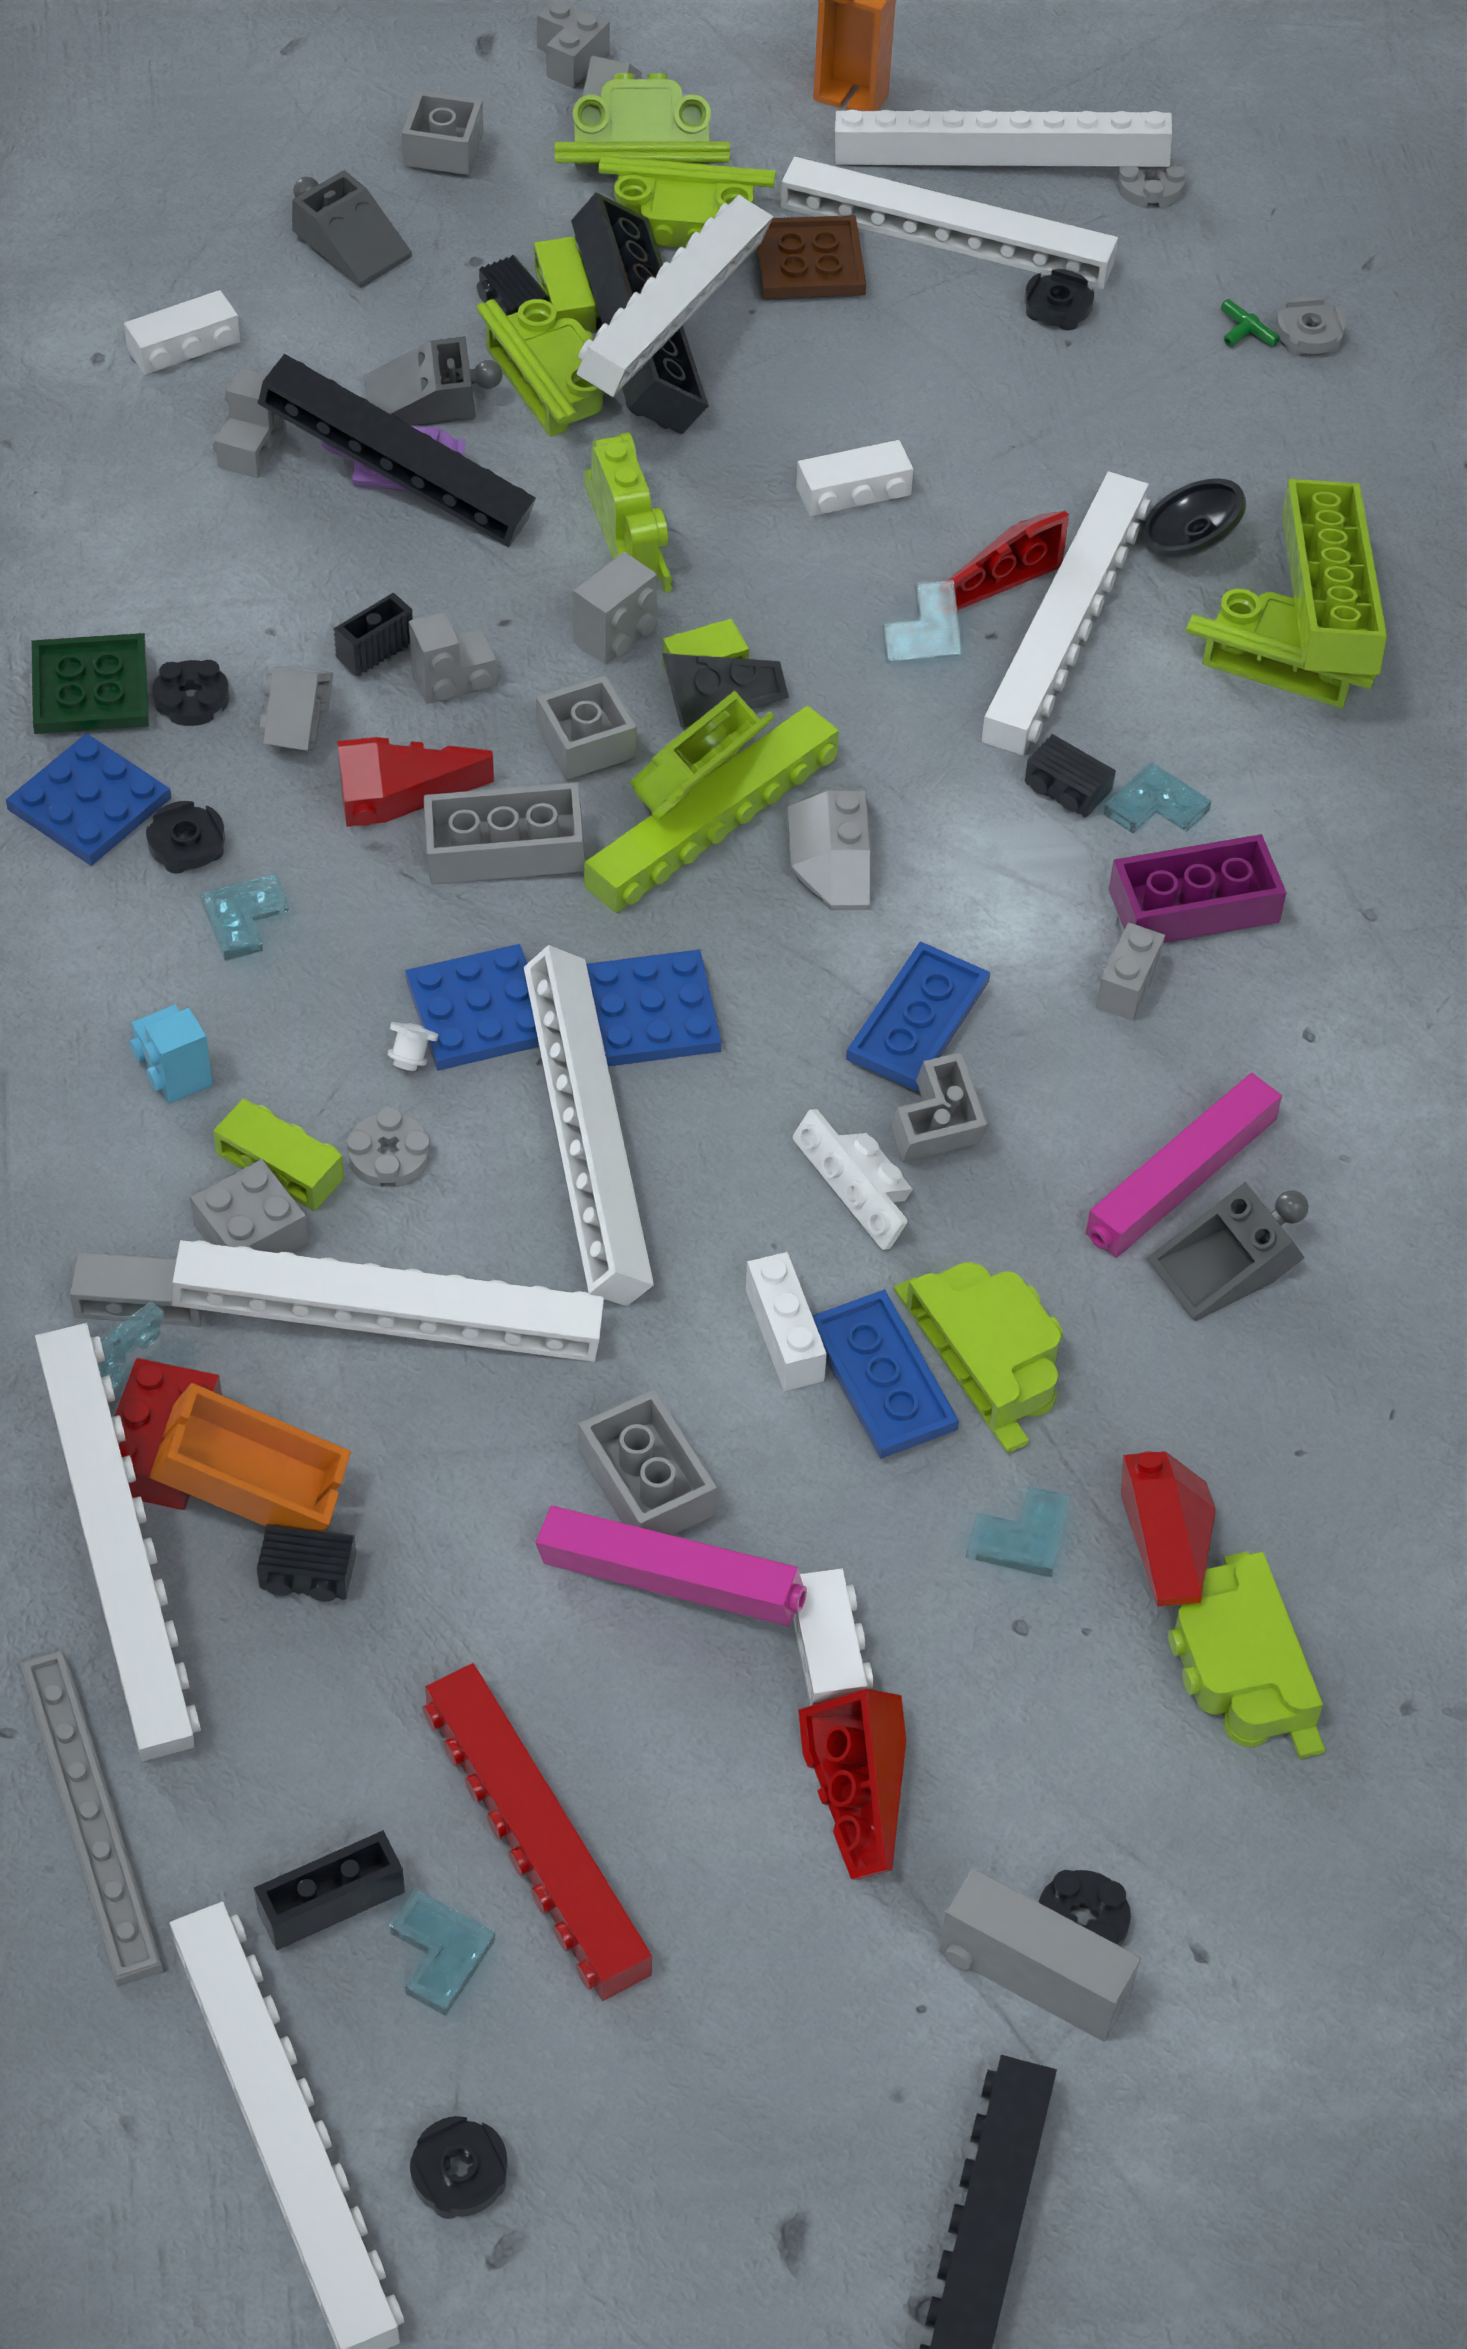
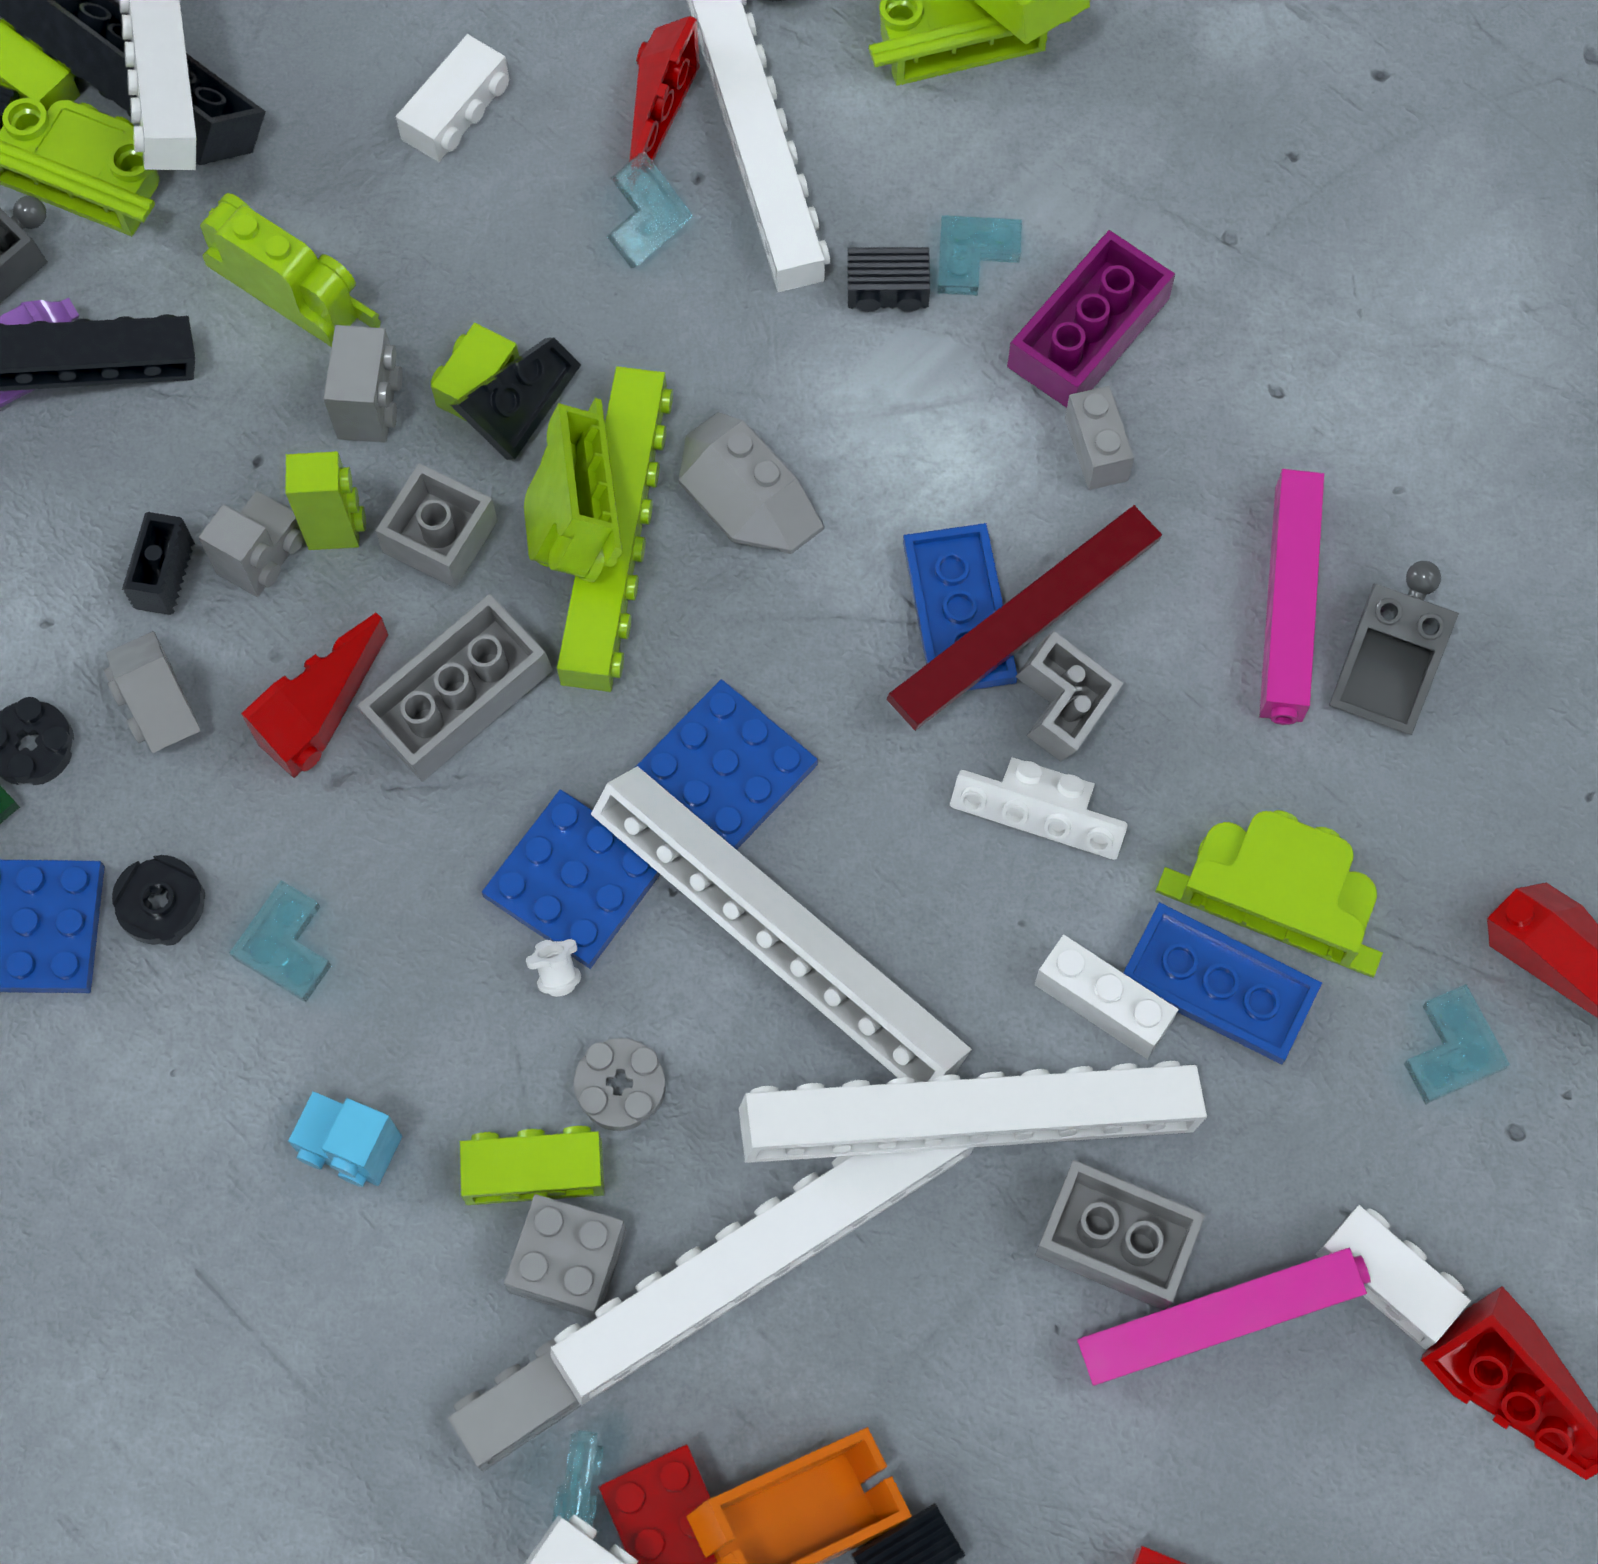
camera: 35 degrees left, 15 degrees up
(516, 655) = (324, 500): none -> lime brick
(612, 1312) = (970, 1111): none -> white brick
(979, 1045) = (1023, 618): none -> dark red tile

